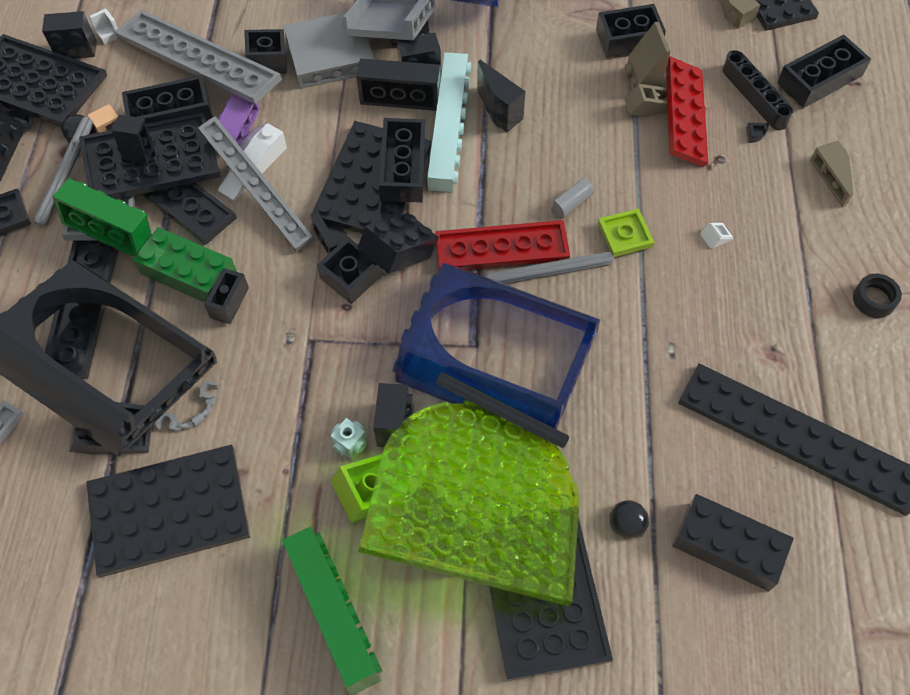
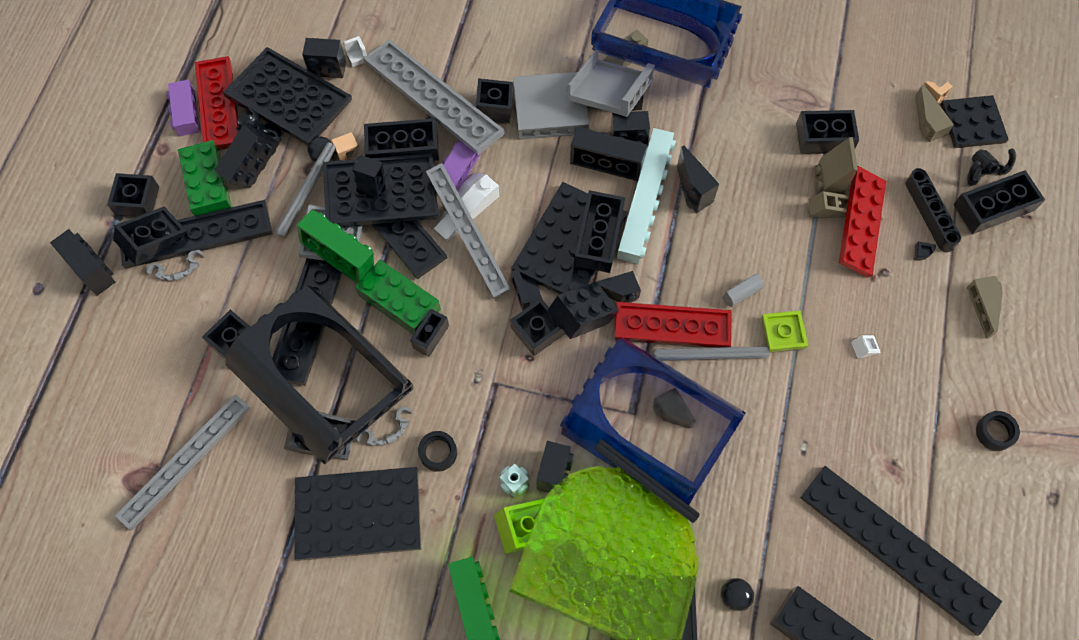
camera: 10 degrees right, 5 degrees up
(246, 408) = (426, 440): none -> black tyre
(438, 215) = (621, 287): none -> black slope
(518, 332) = (673, 409): none -> clear smoke slope
(801, 38) = (987, 164): none -> black piece

